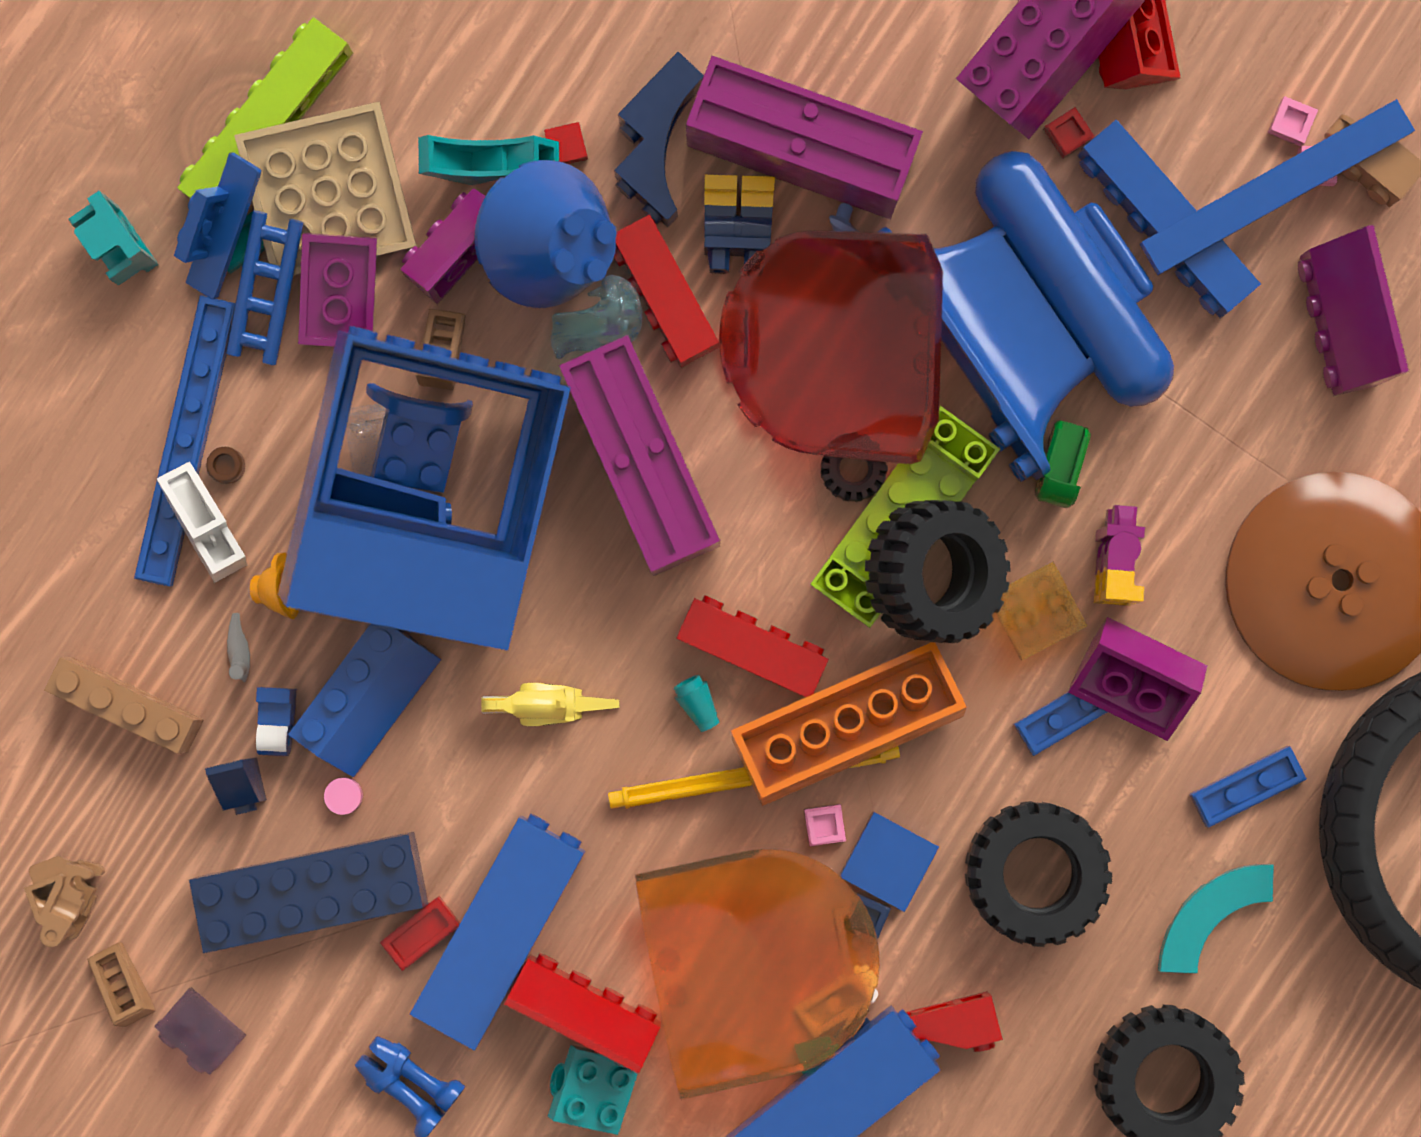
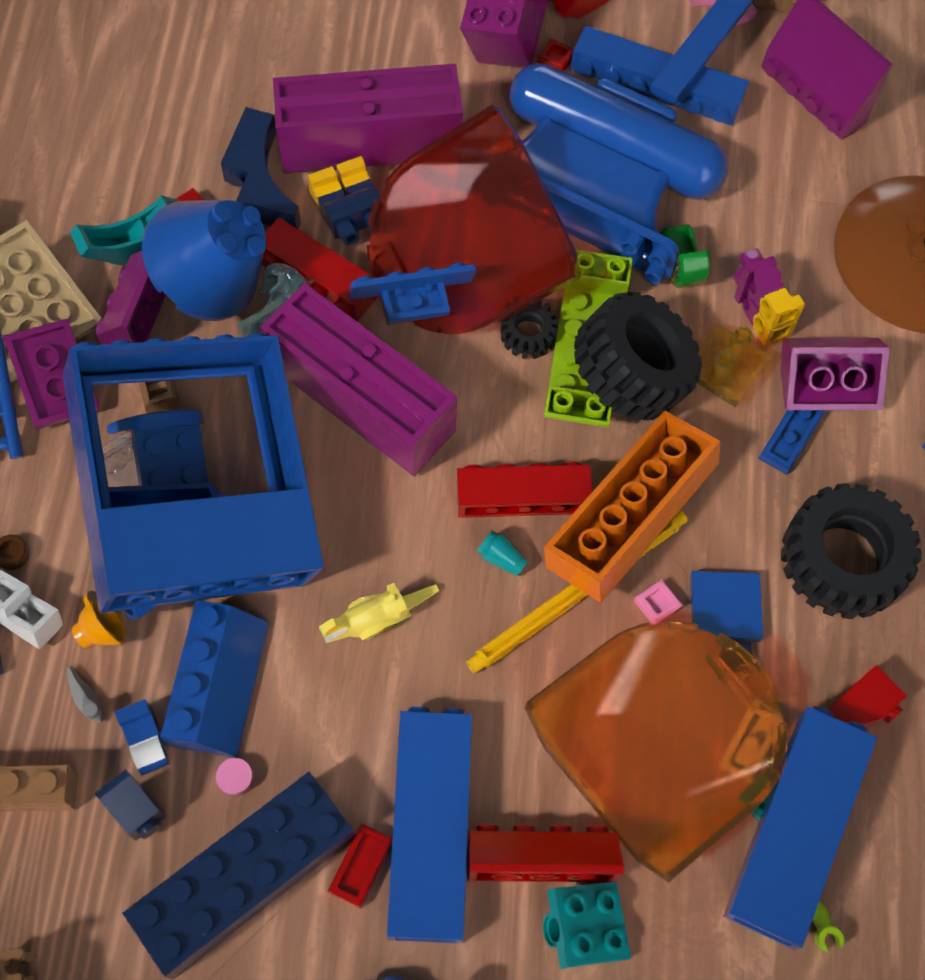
camera: 30 degrees left, 20 degrees down
(745, 383) = (413, 294): none -> blue bracket

